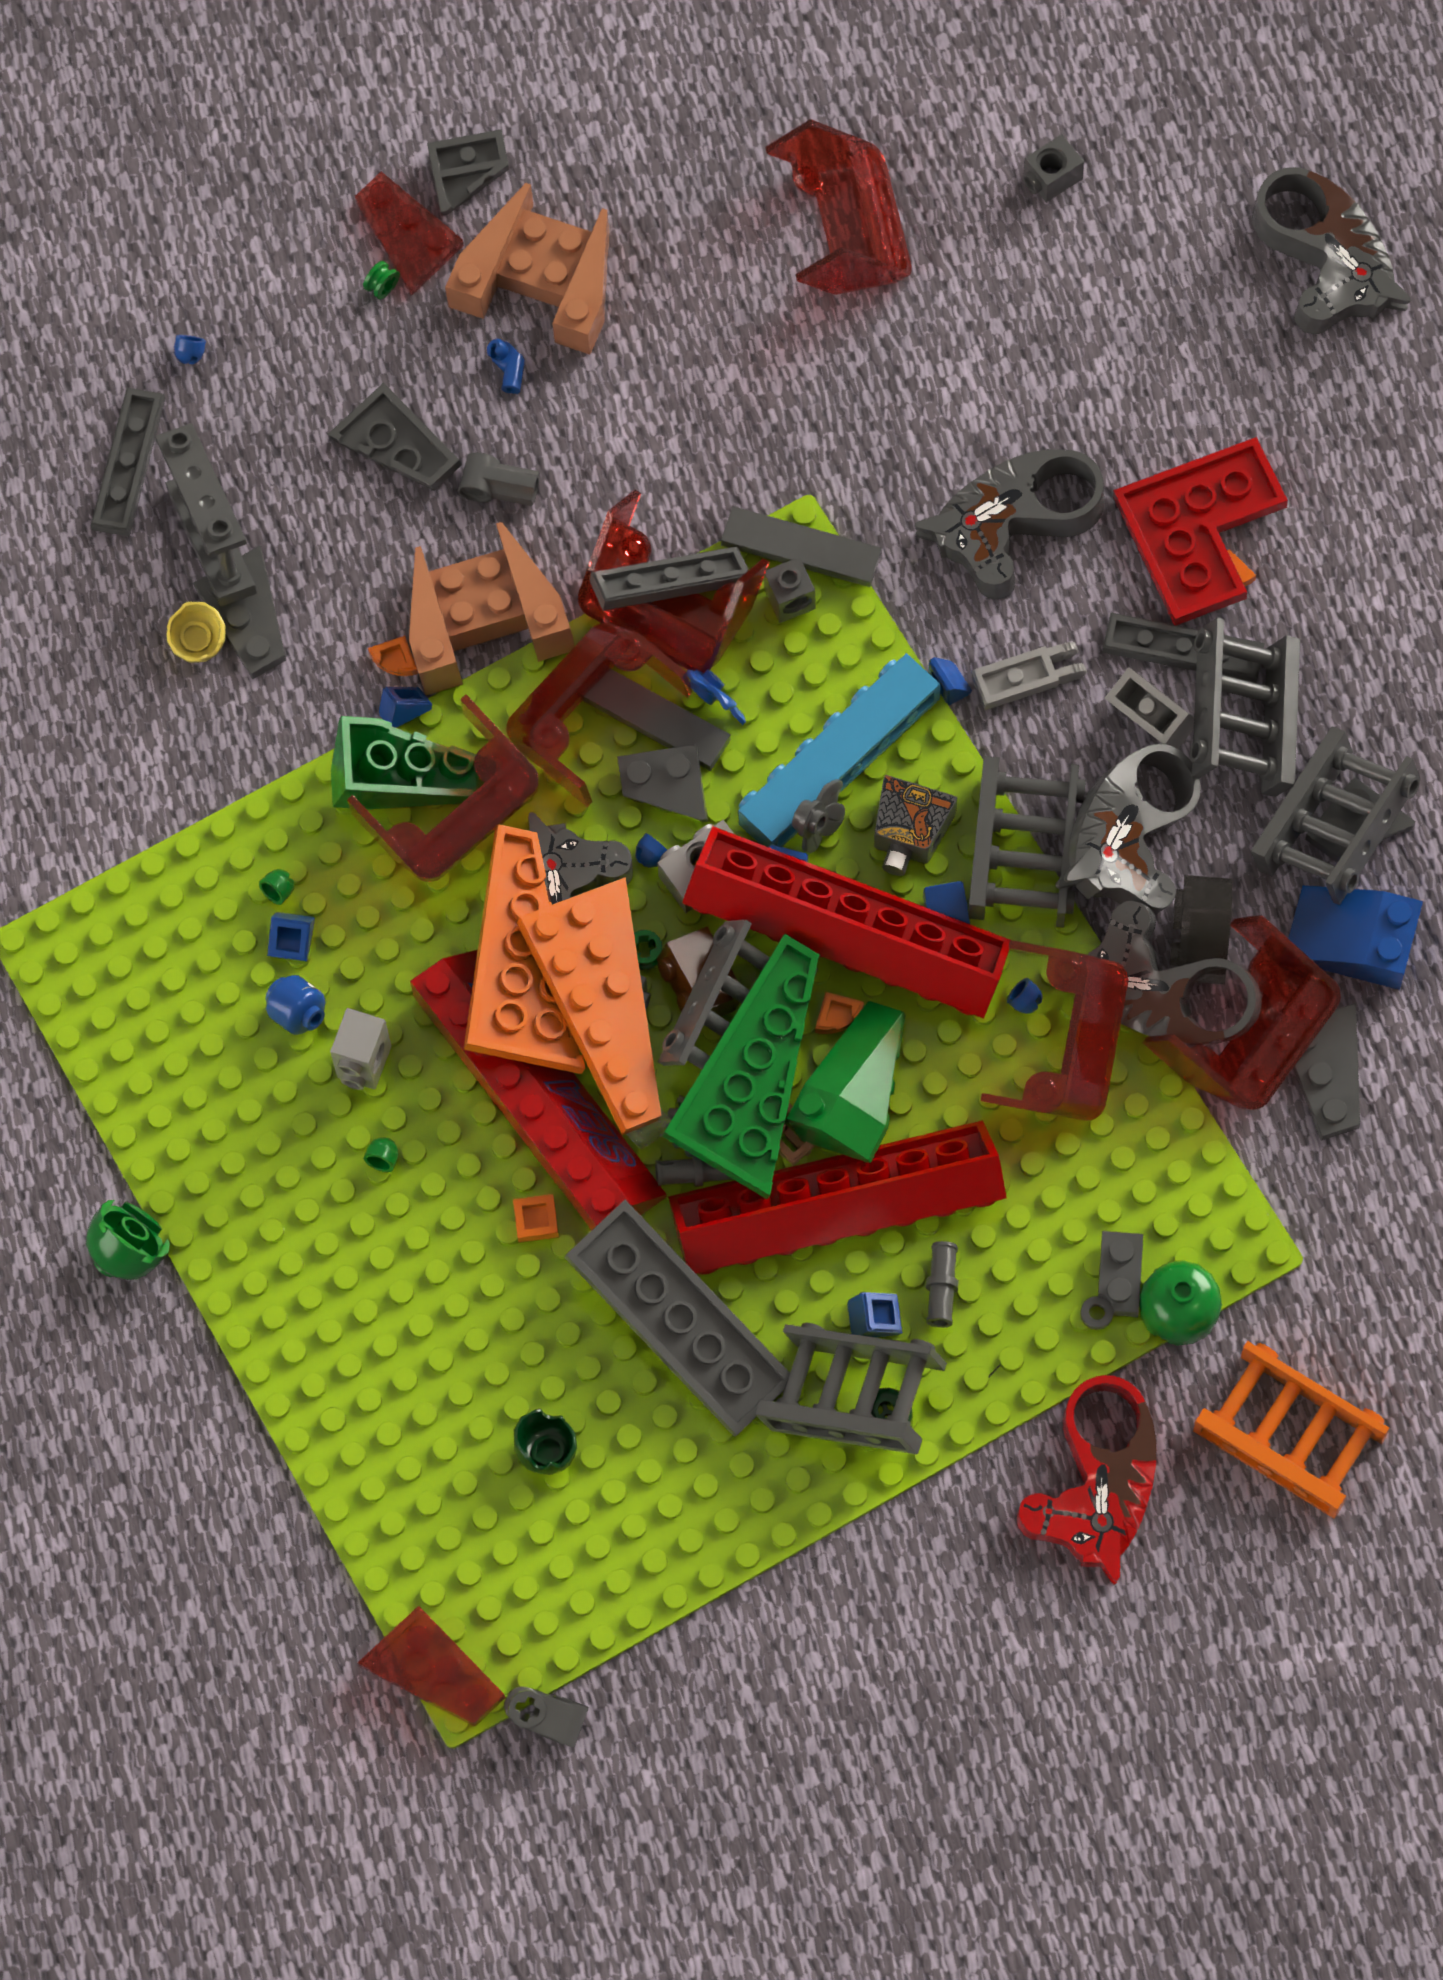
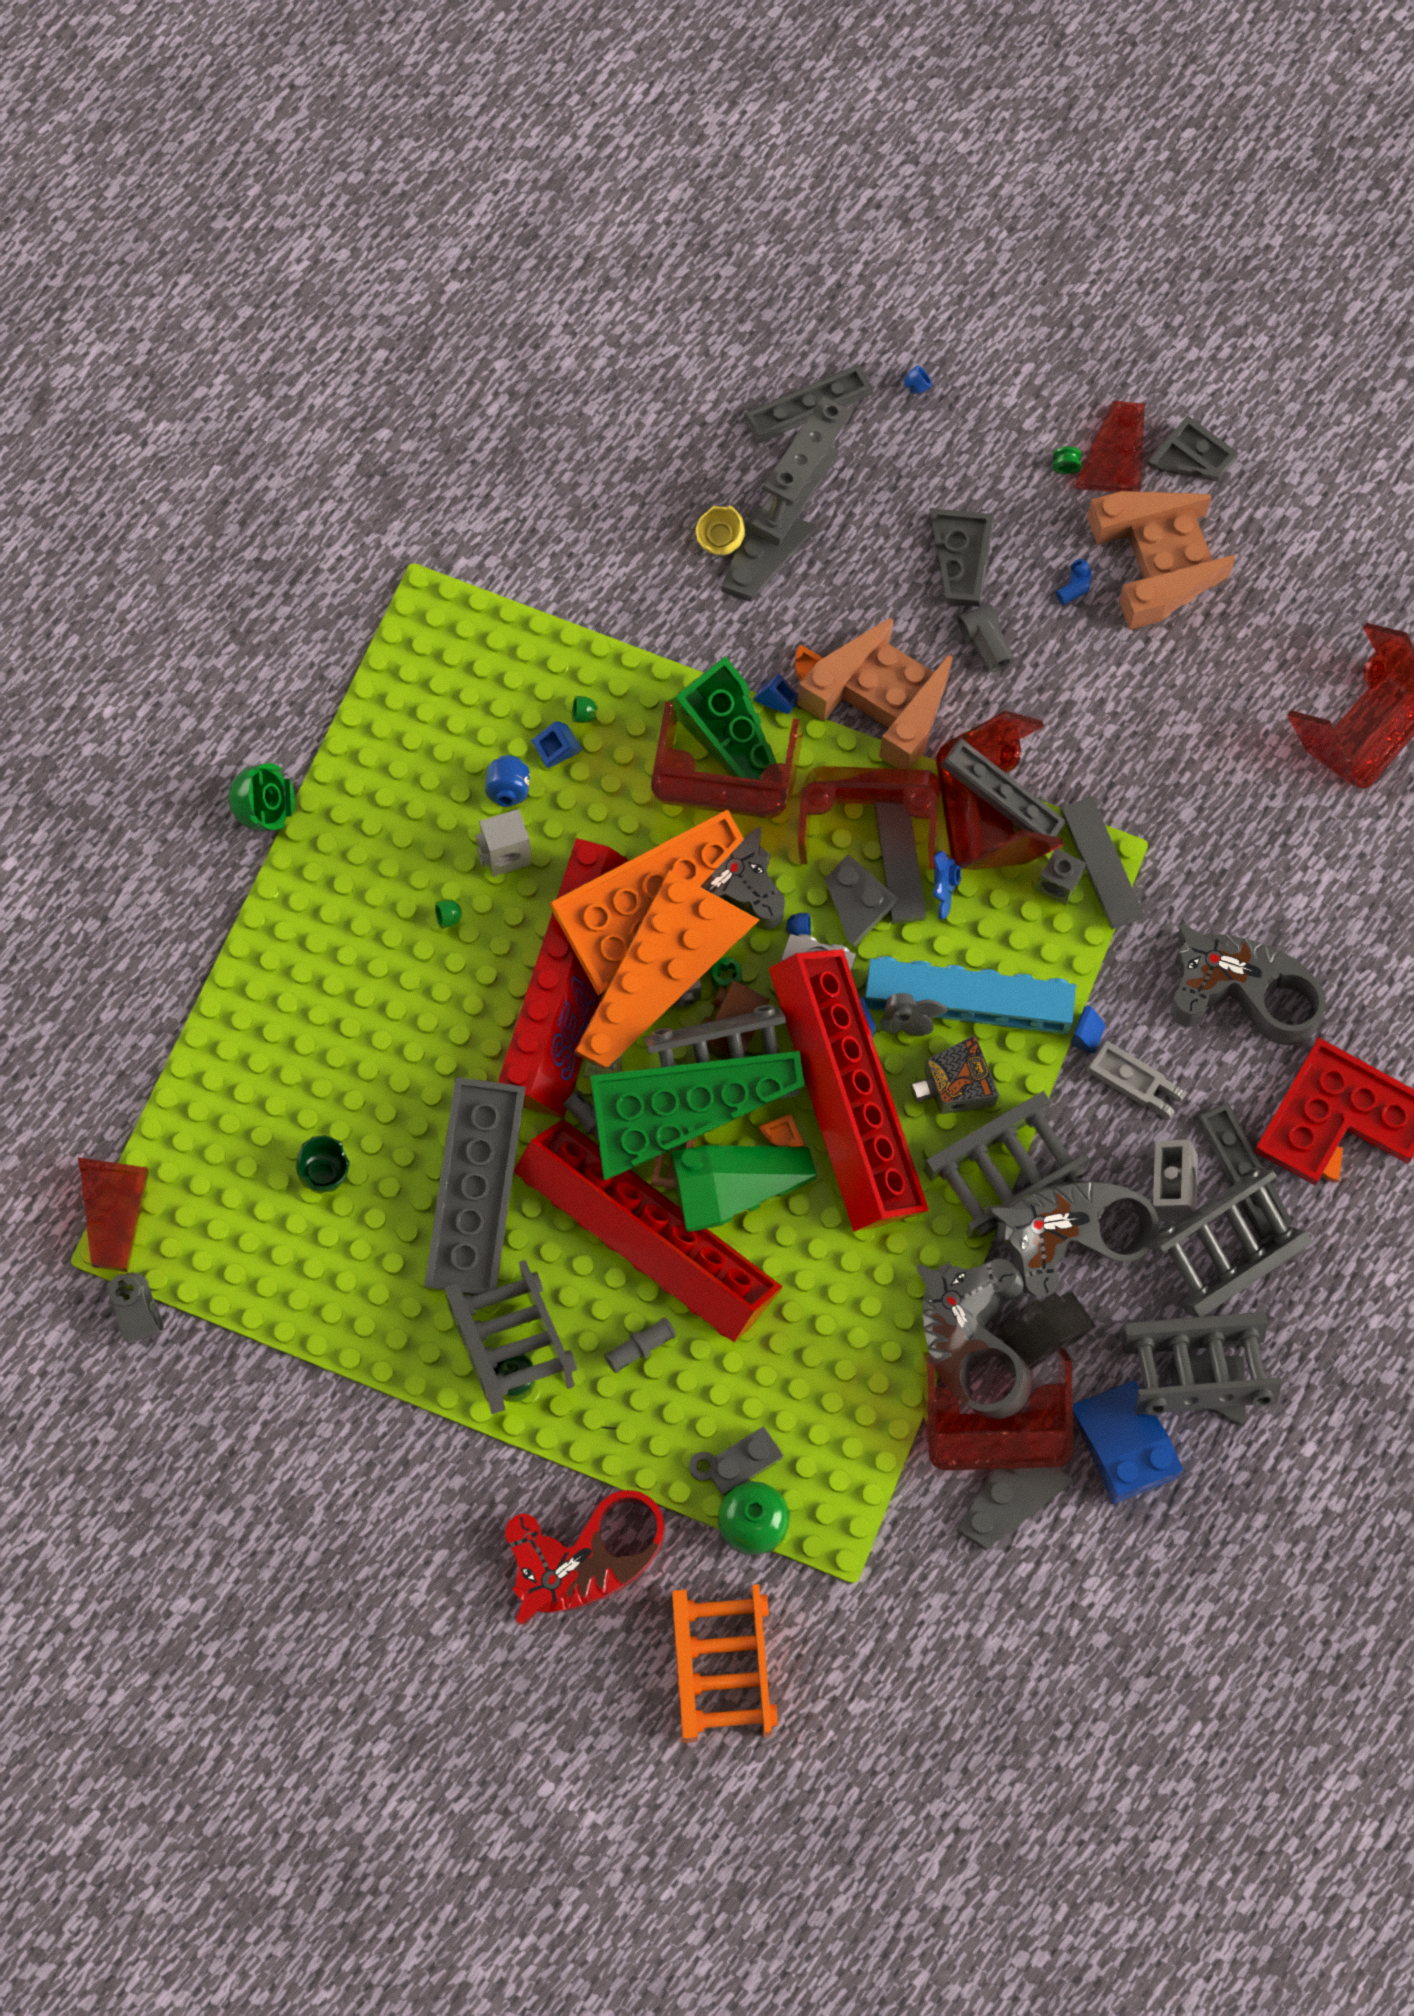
camera: 45 degrees right, 0 degrees up
(535, 1218) = (480, 1044): orange tile -> none
(874, 1314) = (584, 1317): blue slope -> none
(948, 900) = (921, 1146): blue slope -> none
(1025, 996) = (894, 1247): blue hinge -> none
(1091, 1039) = (893, 1311): clear red windscreen -> none

